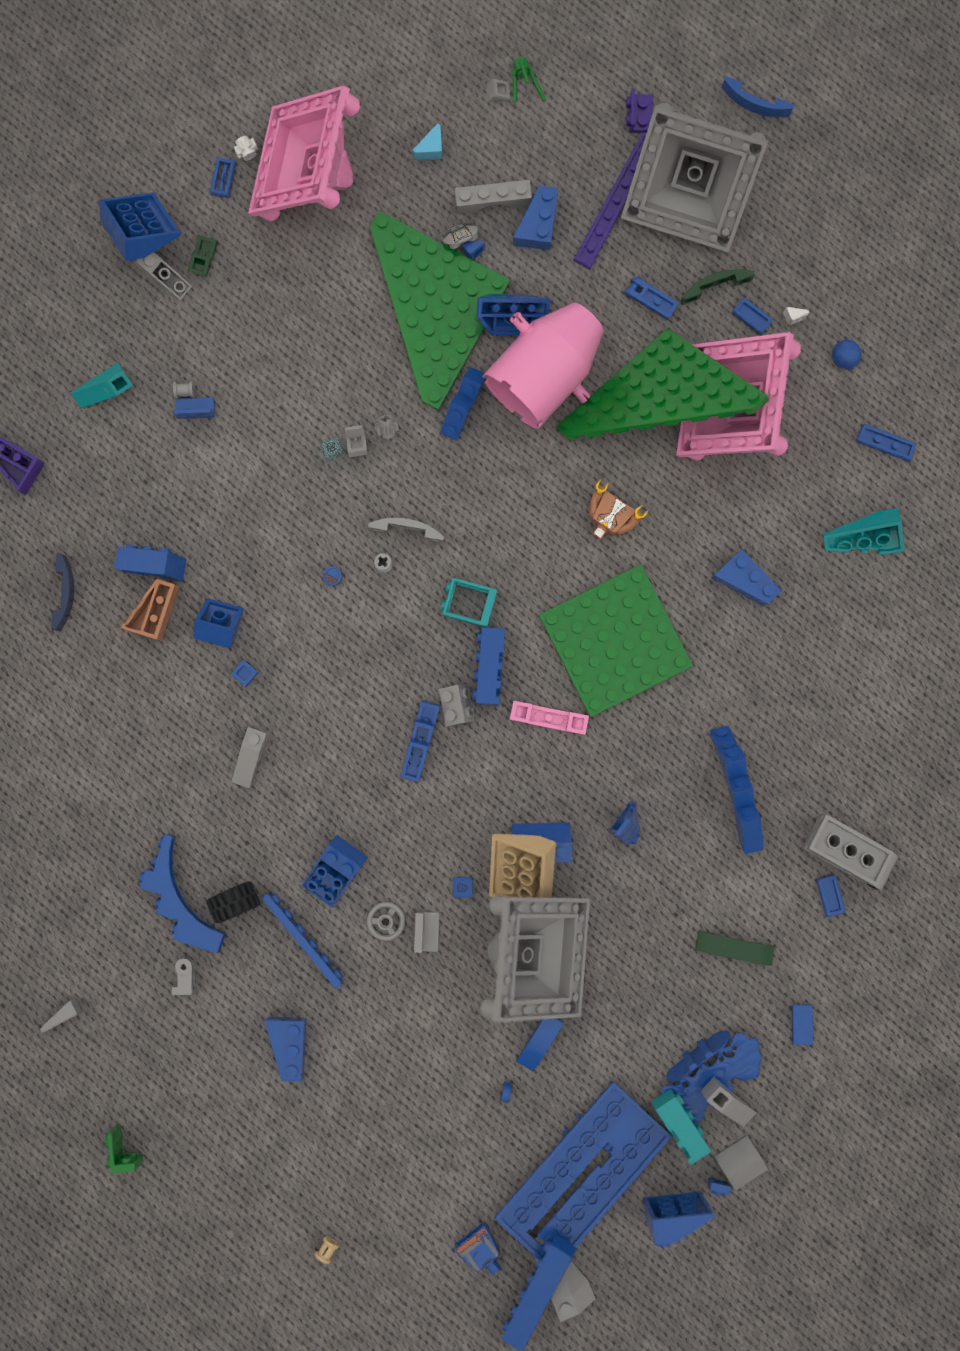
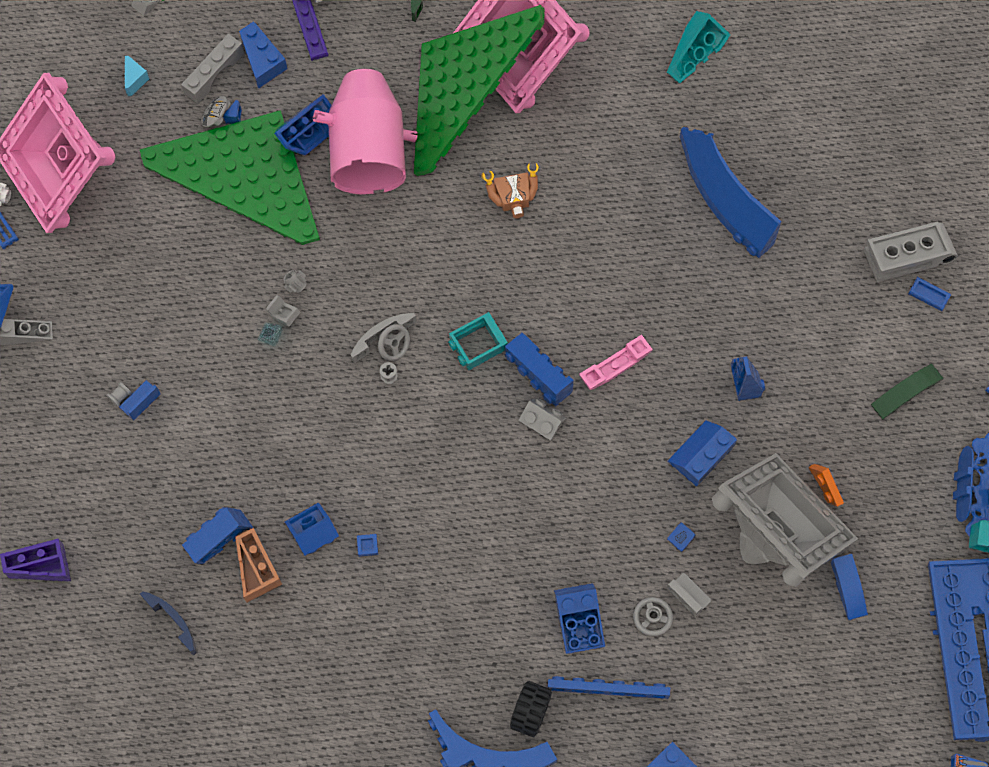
camera: 45 degrees left, 15 degrees down
(102, 387) = (56, 445): teal slope -> none
(203, 256) = (39, 293): dark green slope -> none
(249, 757) = (433, 599): light grey slope -> none
(332, 576) = (360, 418): blue tile -> none
(409, 541) = (392, 342): none -> light grey piece
(420, 741) = (543, 467): blue slope -> none
(462, 403) = (333, 216): blue arch -> none
(506, 1092) = (865, 646): blue tile -> none
(521, 866) = (701, 471): tan slope -> none
(602, 953) = (827, 484): none -> orange wing
(615, 640) = (604, 271): green plate -> none
(651, 298) = (390, 34): blue plate -> none
(740, 789) = (798, 278): blue arch -> none
(748, 579) = (649, 145): blue wedge -> none
(758, 674) = (726, 196): none -> blue slope

